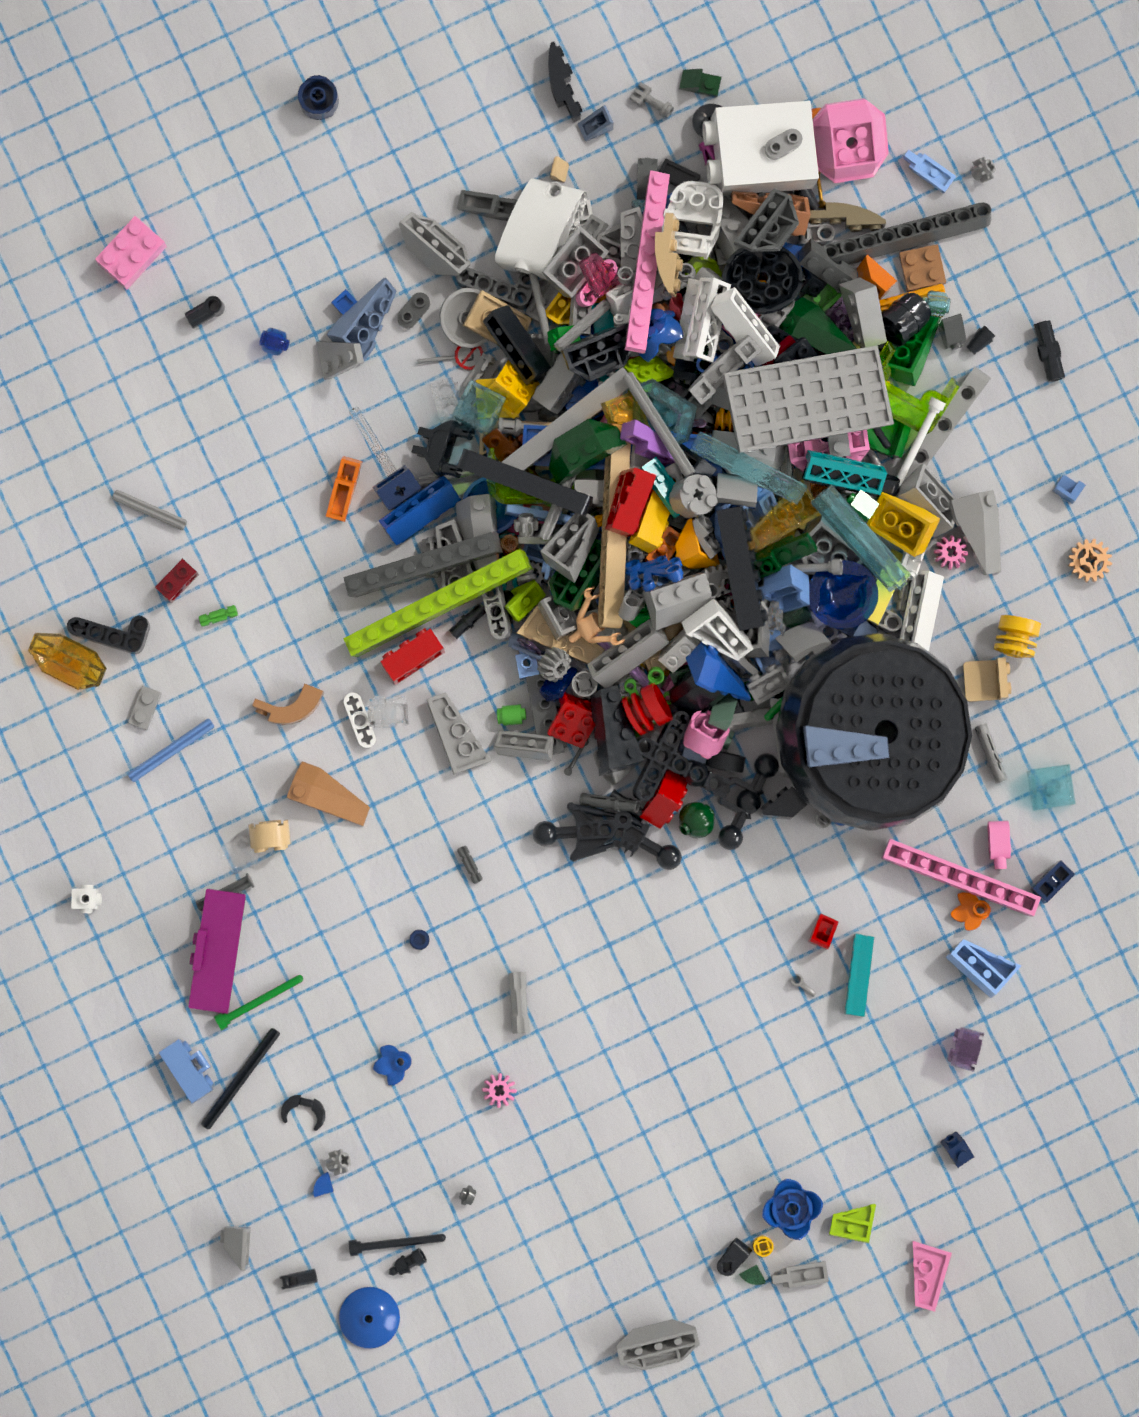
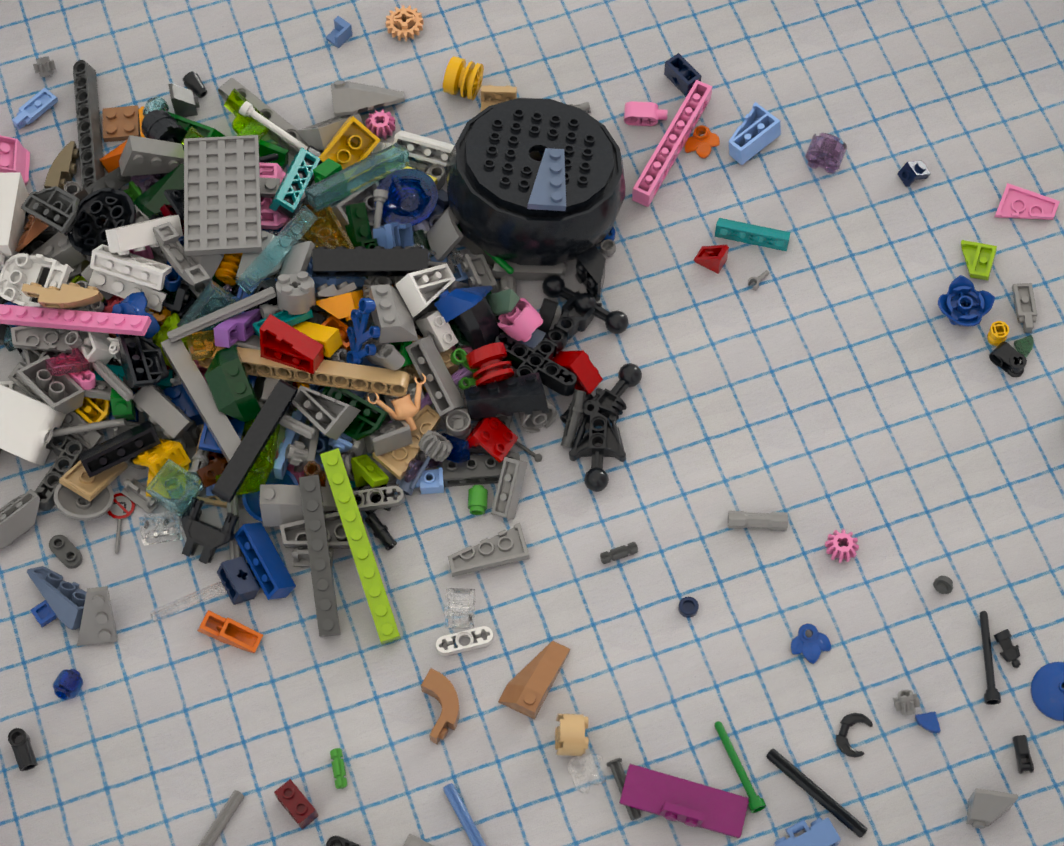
camera: 80 degrees left, 20 degrees down
(412, 655) = (407, 580): red brick -> none
(696, 820) = (598, 346): dark green plant -> none
(1049, 351) = (215, 35): black piece -> none
(1051, 787) = (599, 69): clear light blue slope -> none

